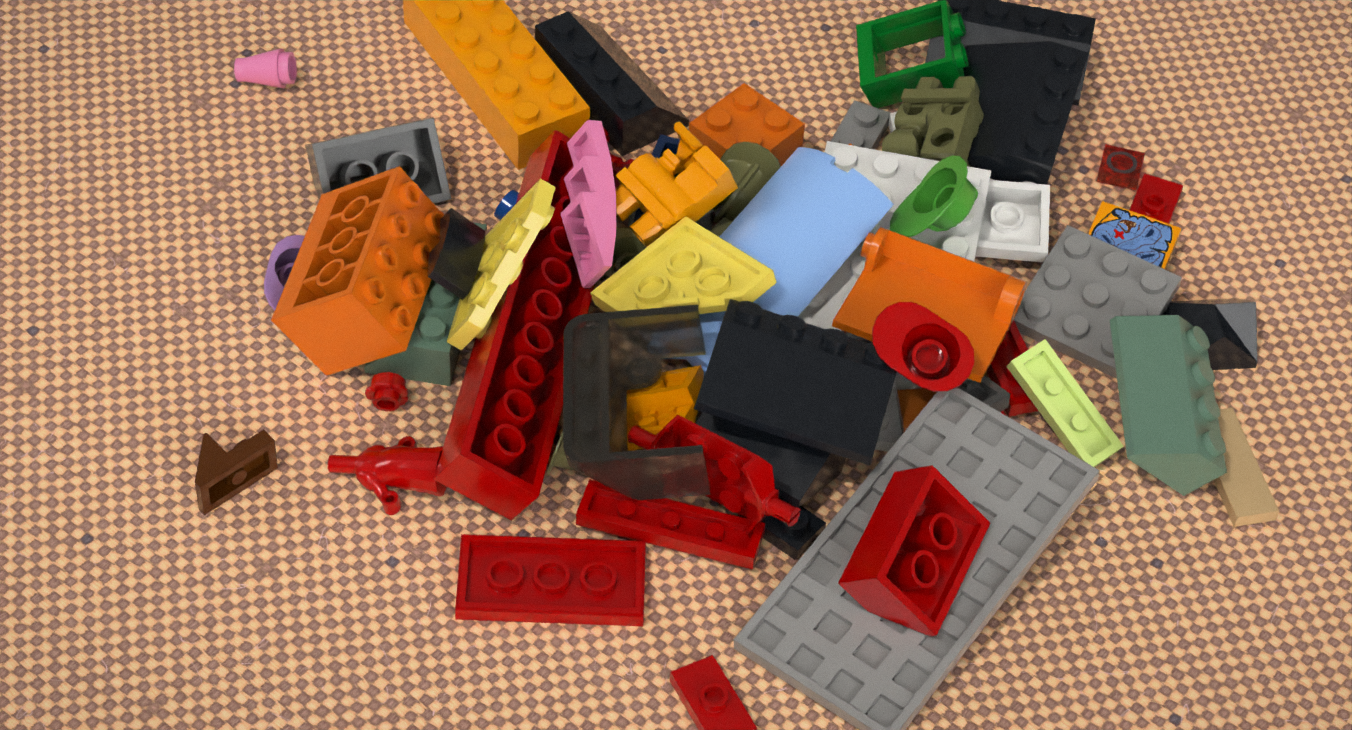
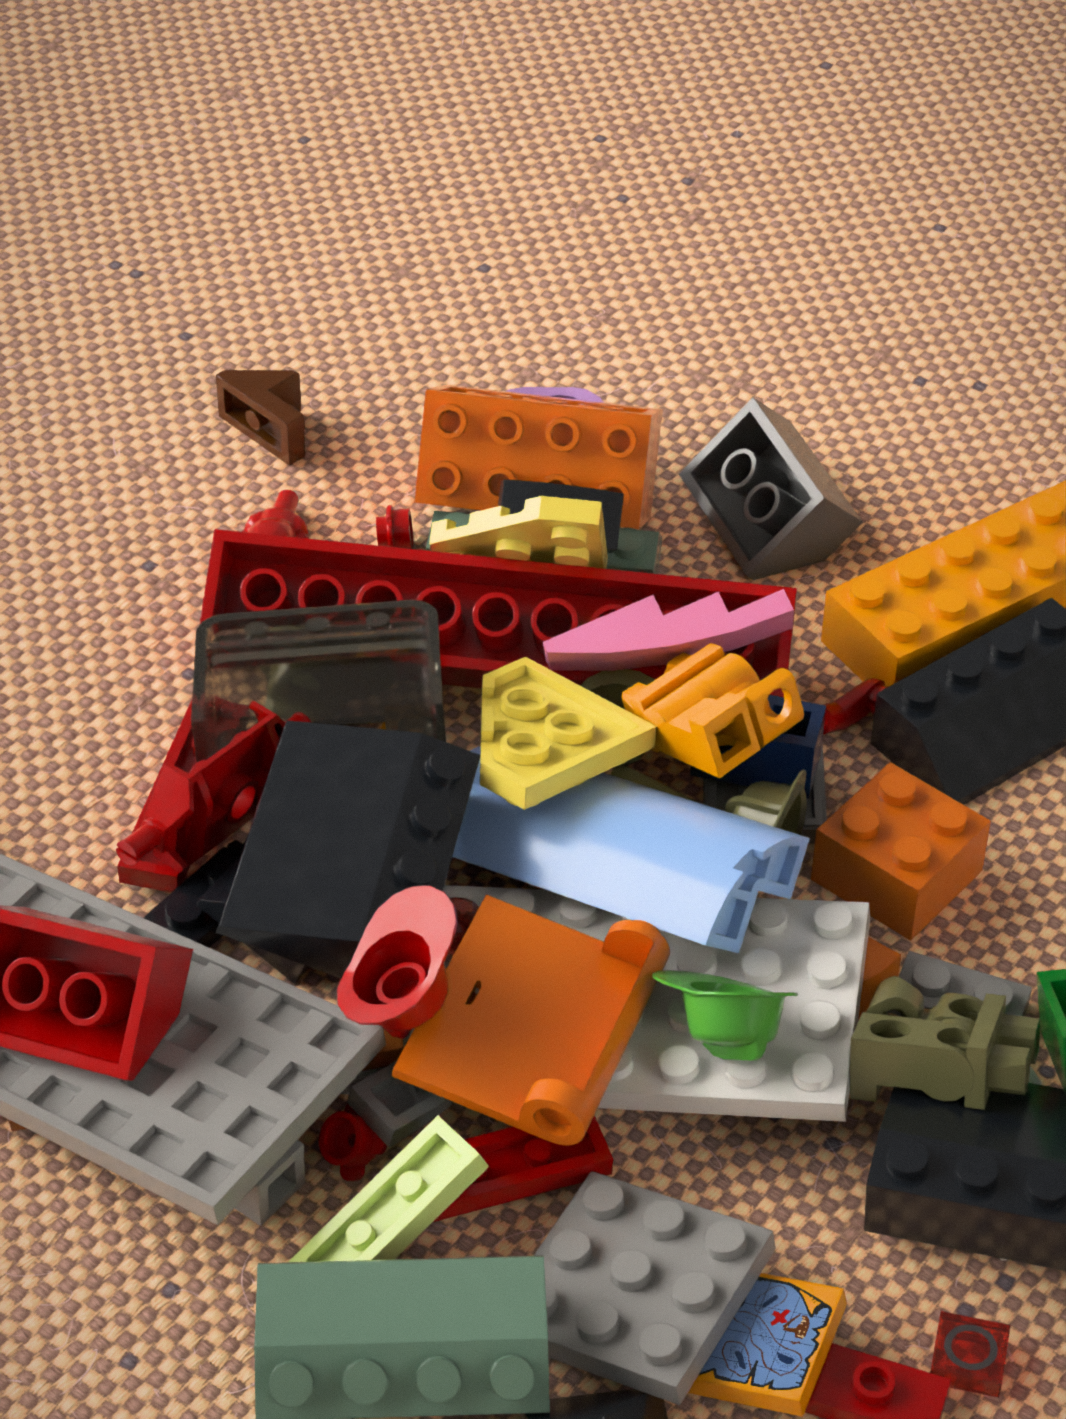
camera: 90 degrees right, 5 degrees down
(269, 68) = (936, 394): bright pink cone -> none
(551, 580) = (108, 697): red tile -> none
(1015, 221) = (788, 1173): white plate -> none

